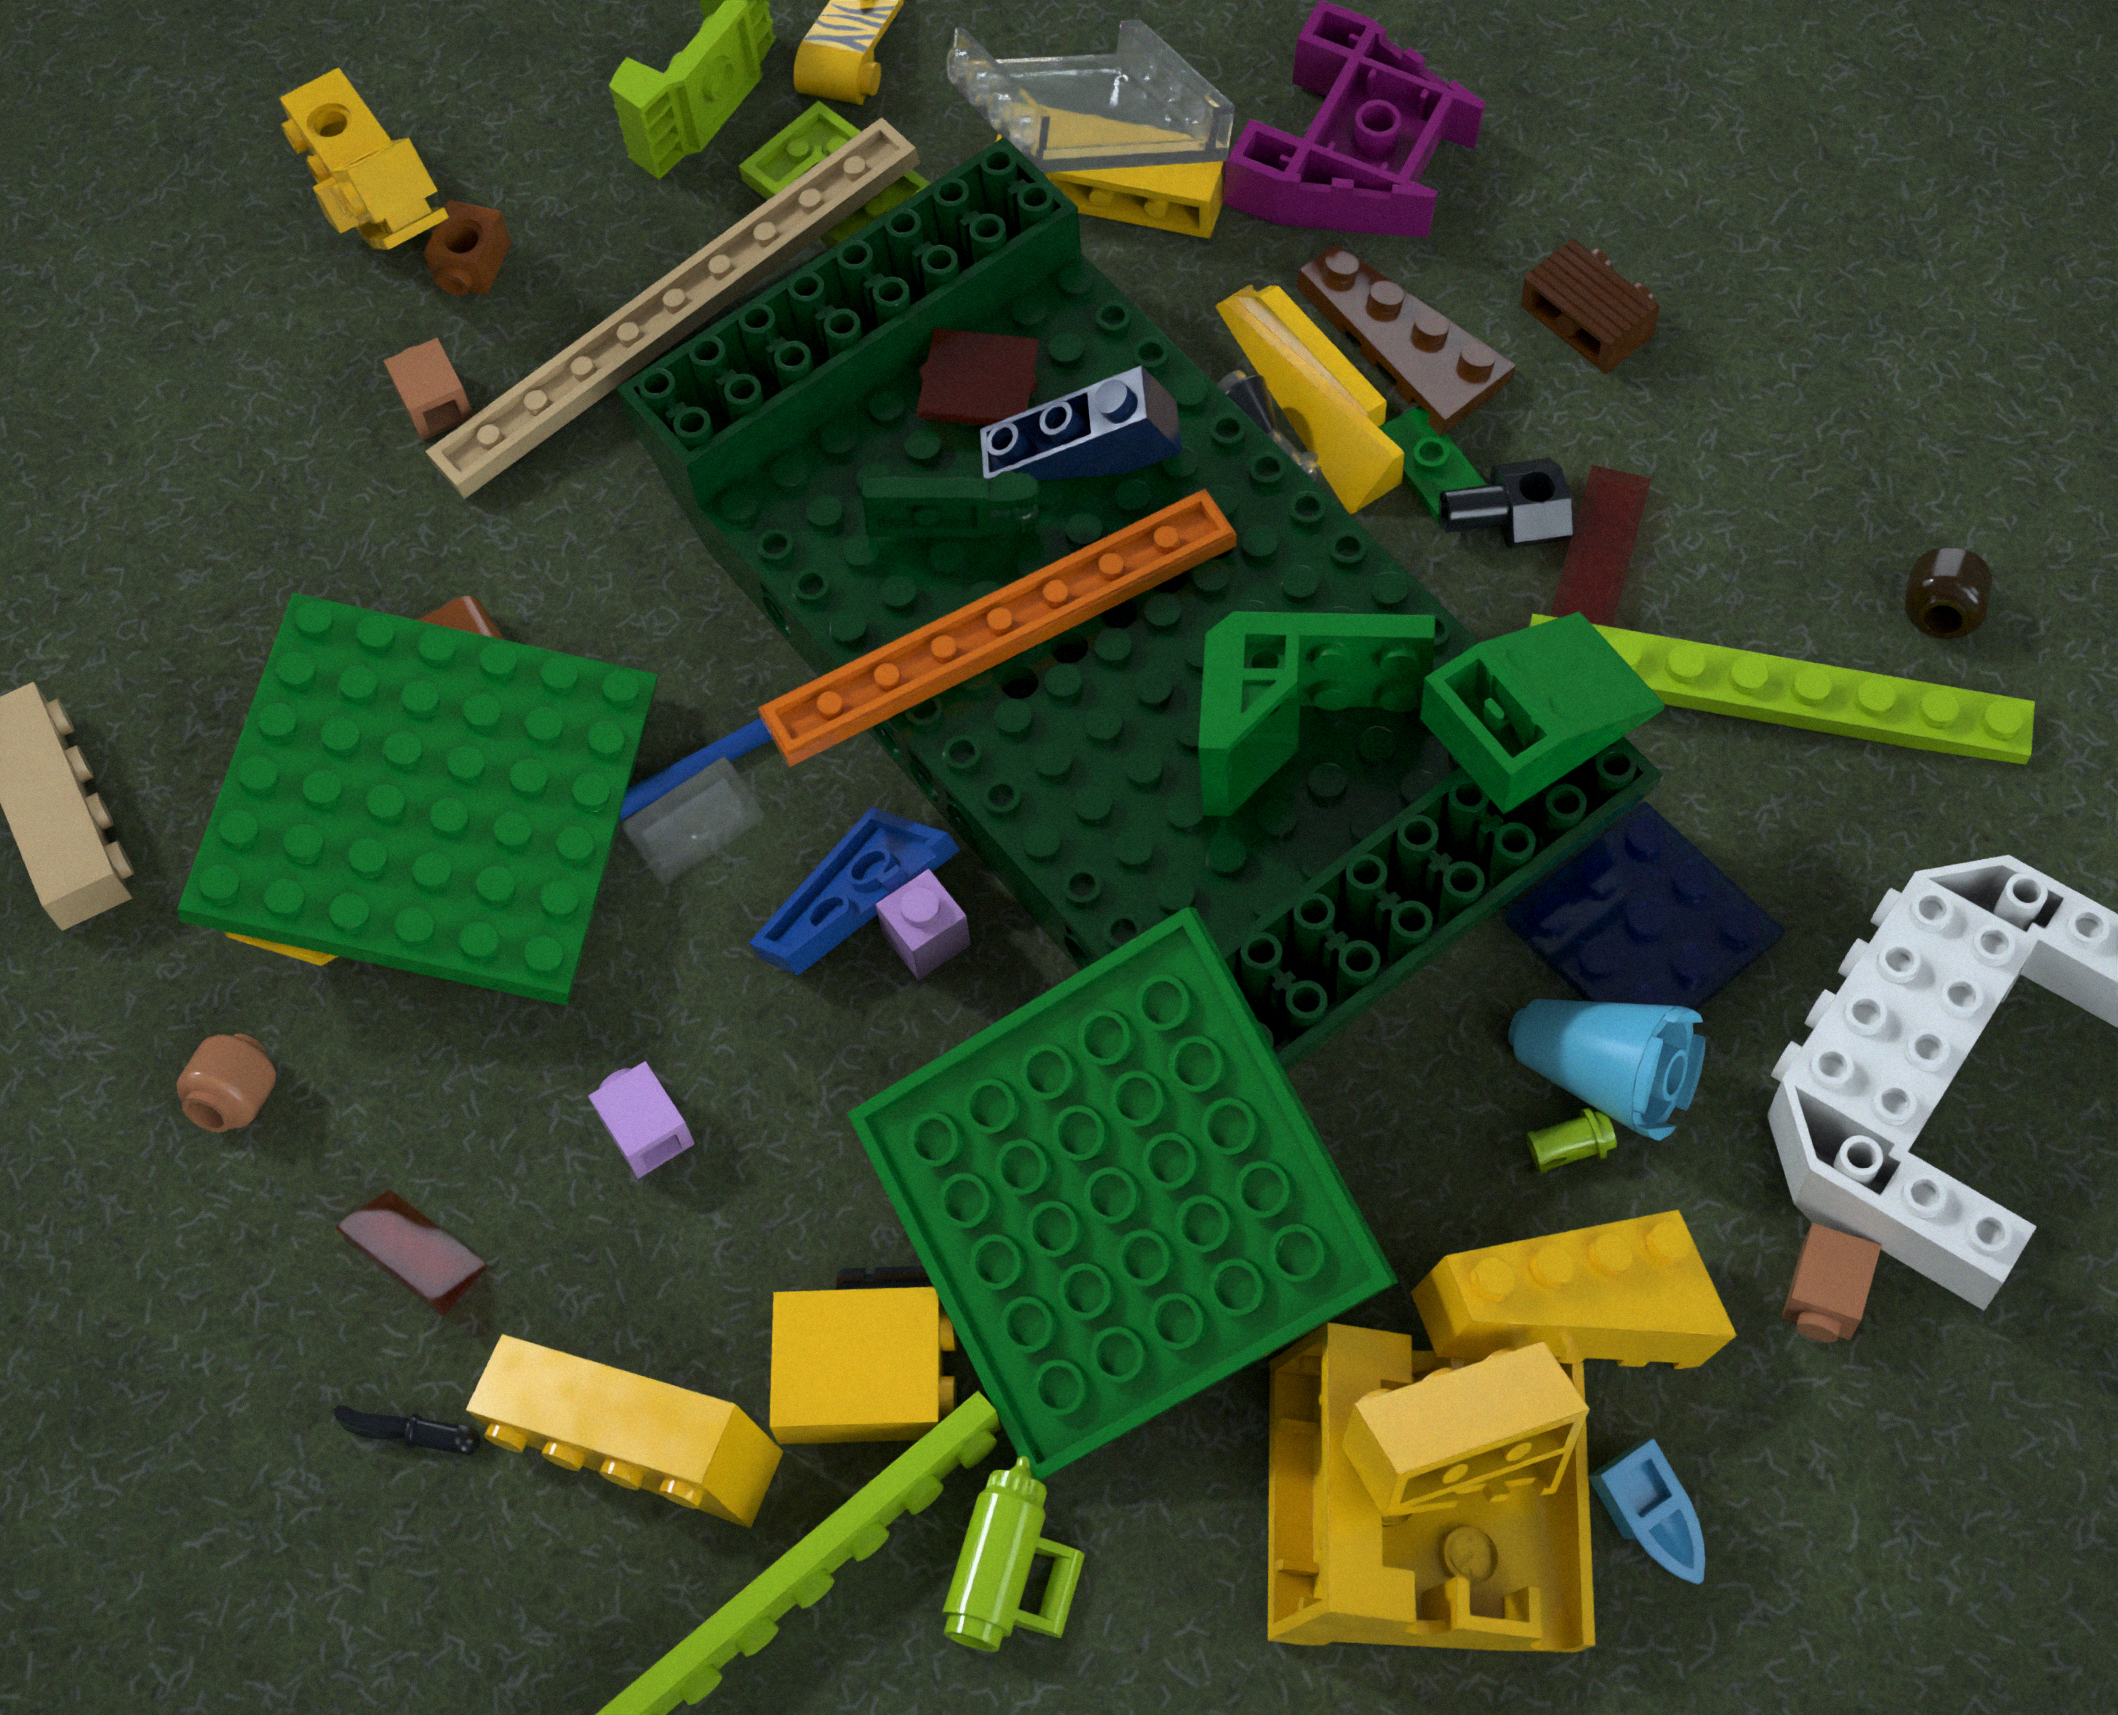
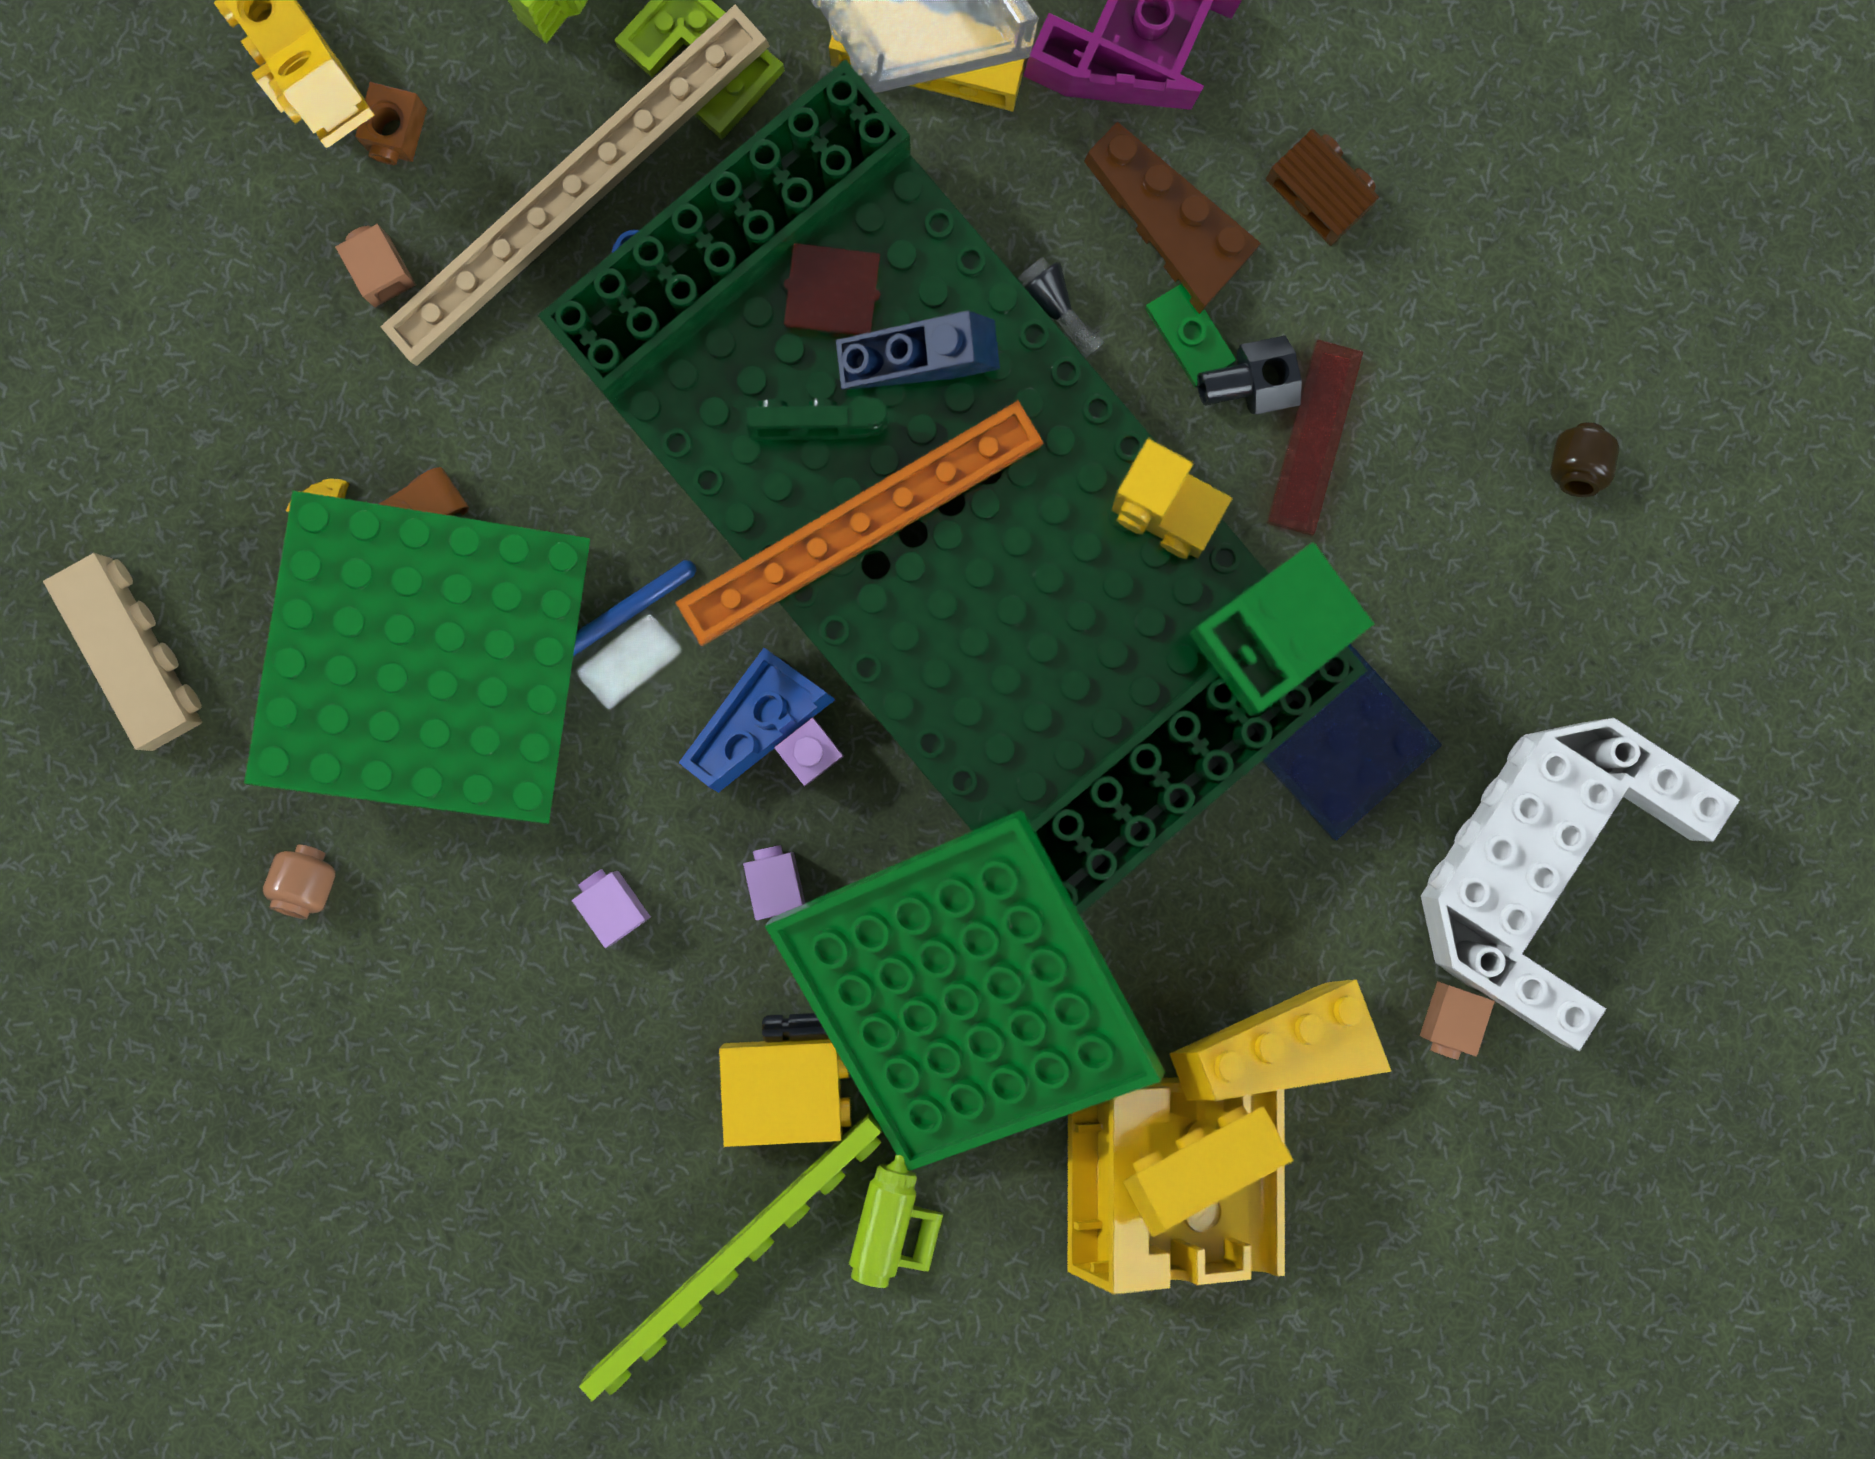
camera: 10 degrees left, 25 degrees up
(412, 1250) = (453, 1006): slope -> none
(414, 1430) = (473, 1138): black piece -> none
(626, 1429) = (618, 1146): yellow wedge -> none
(856, 1075) = (773, 882): none -> lavender brick
(1289, 663) = (1057, 627): green bracket -> none
(1319, 394) = (1100, 267): yellow wedge -> none
(1378, 569) = (1169, 501): none -> yellow brick
(1572, 1140) = (1281, 911): lime pin -> none
(1615, 1056) = (1313, 857): medium azure cone -> none
(1652, 1508) = (1326, 1178): dark azure plate -> none
(1826, 697) = (1447, 543): lime plate -> none

